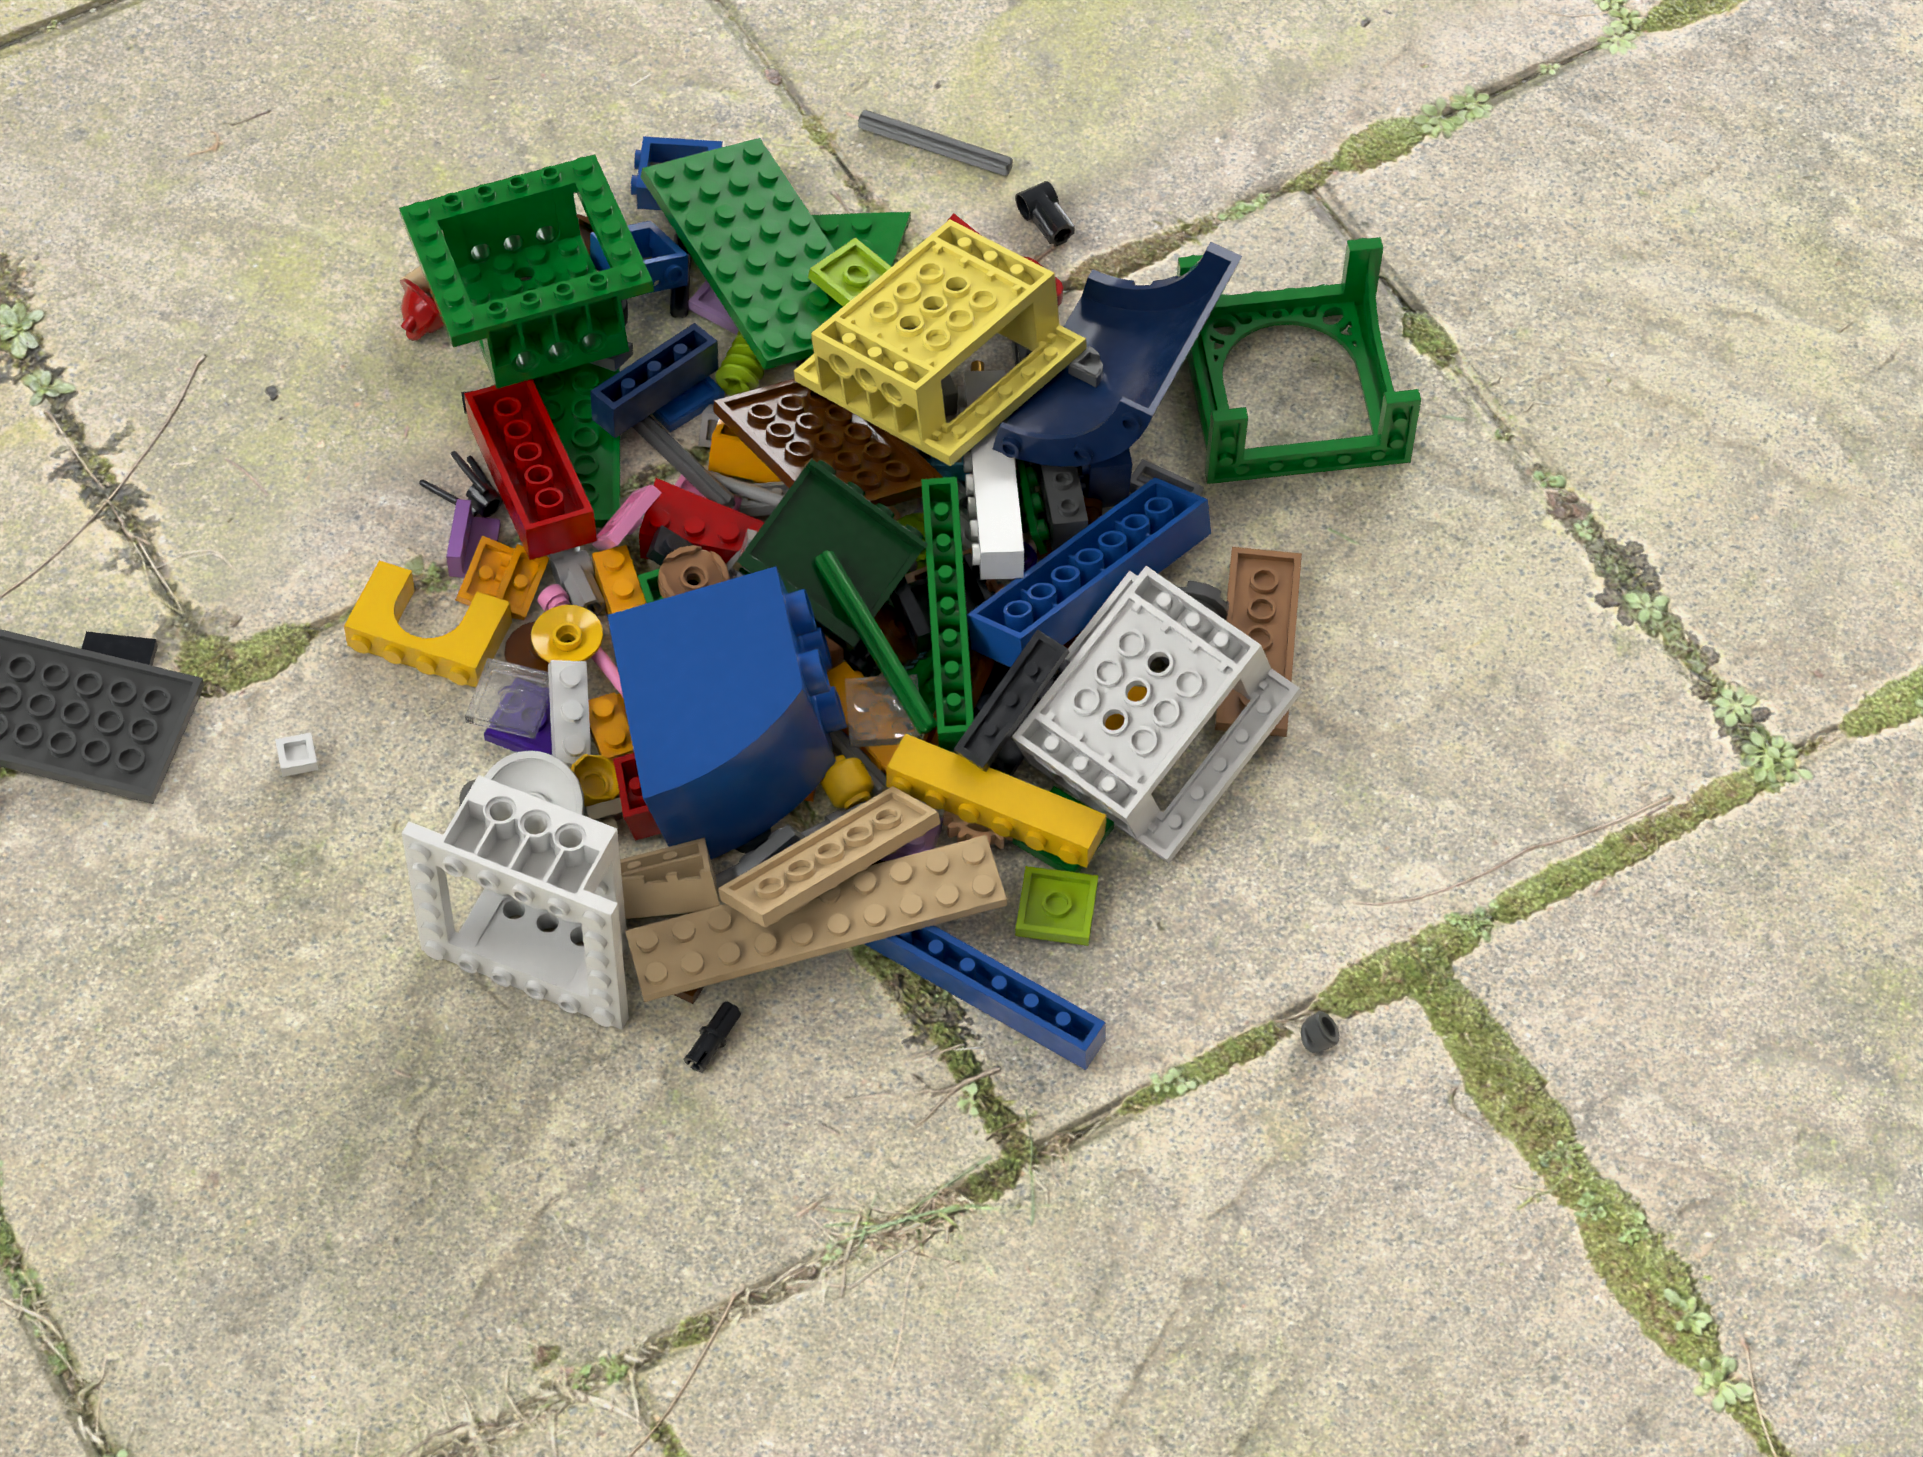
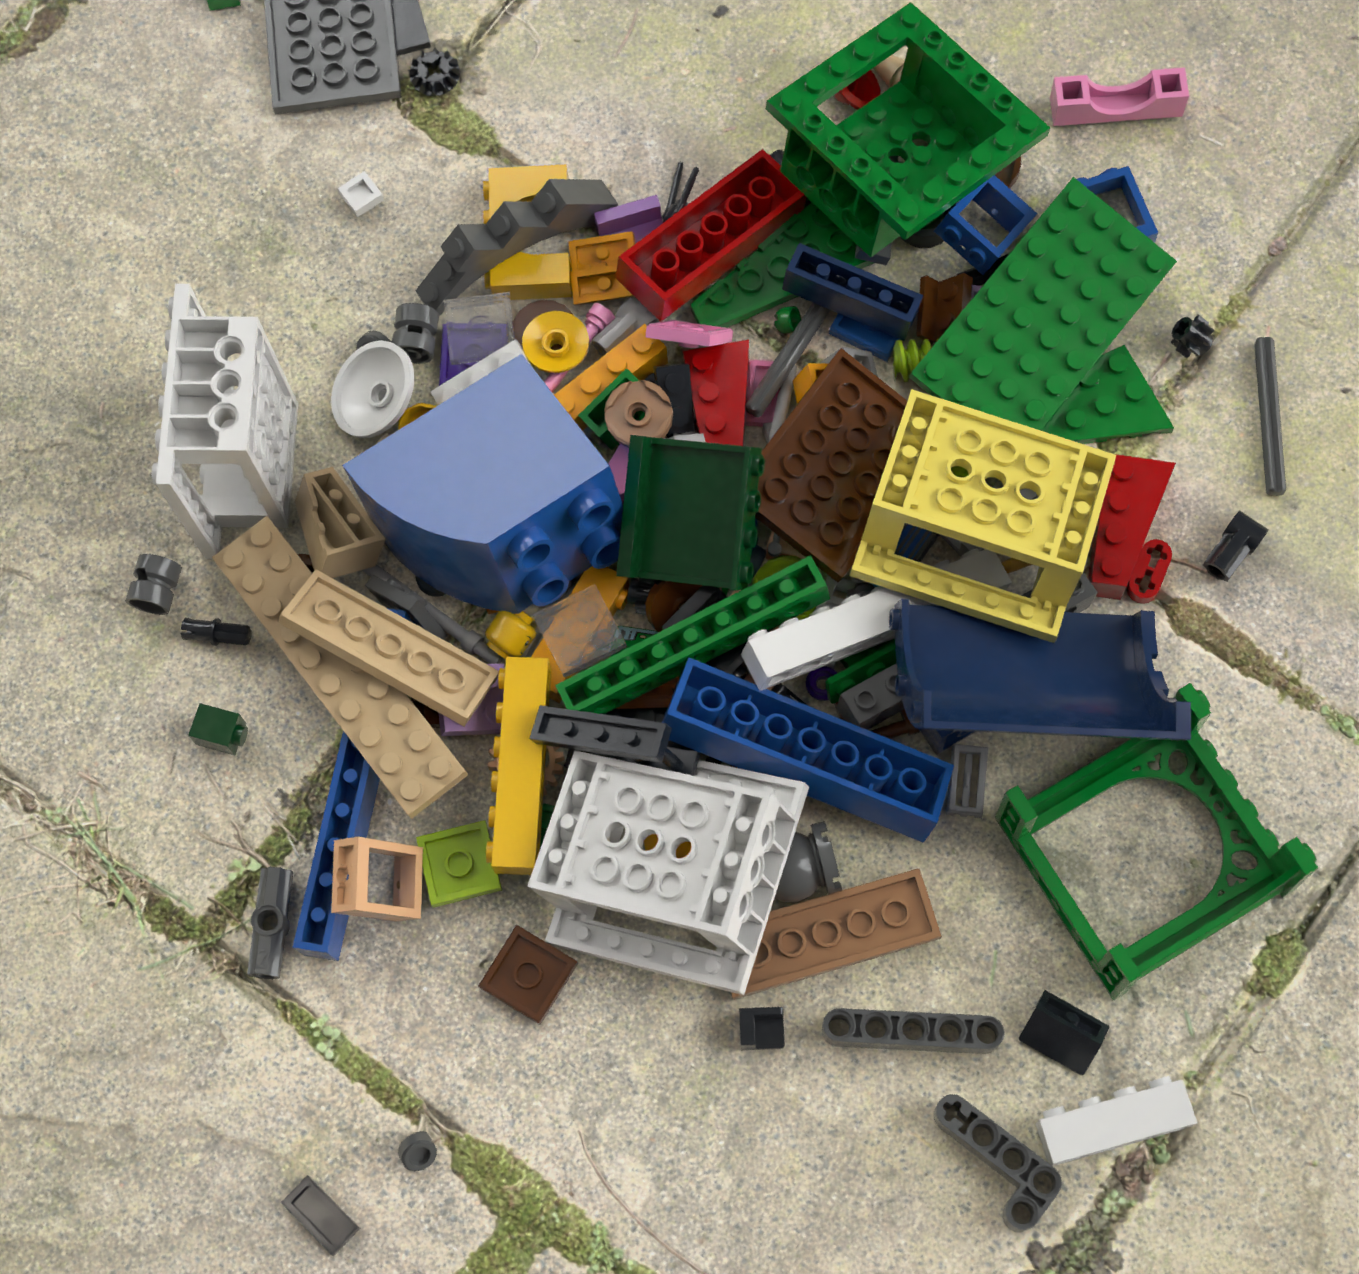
camera: 75 degrees right, 15 degrees up
(186, 659) = (437, 83): none -> black gear
(437, 641) = (516, 225): none -> dark grey arch
(478, 751) = (415, 331): none -> dark grey wheel
(579, 98) = (1081, 101): none -> bright pink arch
(639, 1073) = (153, 584): none -> dark grey wheel
(643, 452) = (787, 319): none -> green hinge
(707, 316) = (941, 304): none -> reddish brown bracket
(822, 1060) = (218, 729): none -> dark green brick
(832, 161) = (1192, 336): none -> black gear
(848, 271) = (1048, 402): lime plate -> none
(876, 642) = (626, 590): green axle -> none
(1062, 1091) = (268, 946): none -> dark grey piece
(1063, 959) = (351, 895): none -> light nougat window
(1087, 367) = (1033, 653): dark grey tile -> none
(1191, 886) = (528, 974): none -> reddish brown plate
(1322, 724) = (761, 1028): none -> black panel
(1346, 1137) = (320, 1215): none -> tile
(1372, 621) = (928, 1022): none -> dark grey beam
(1427, 502) = (1064, 1033): none -> black panel
(1520, 494) = (1115, 1122): none -> white brick
(1541, 570) = (993, 1157): none -> dark grey beam

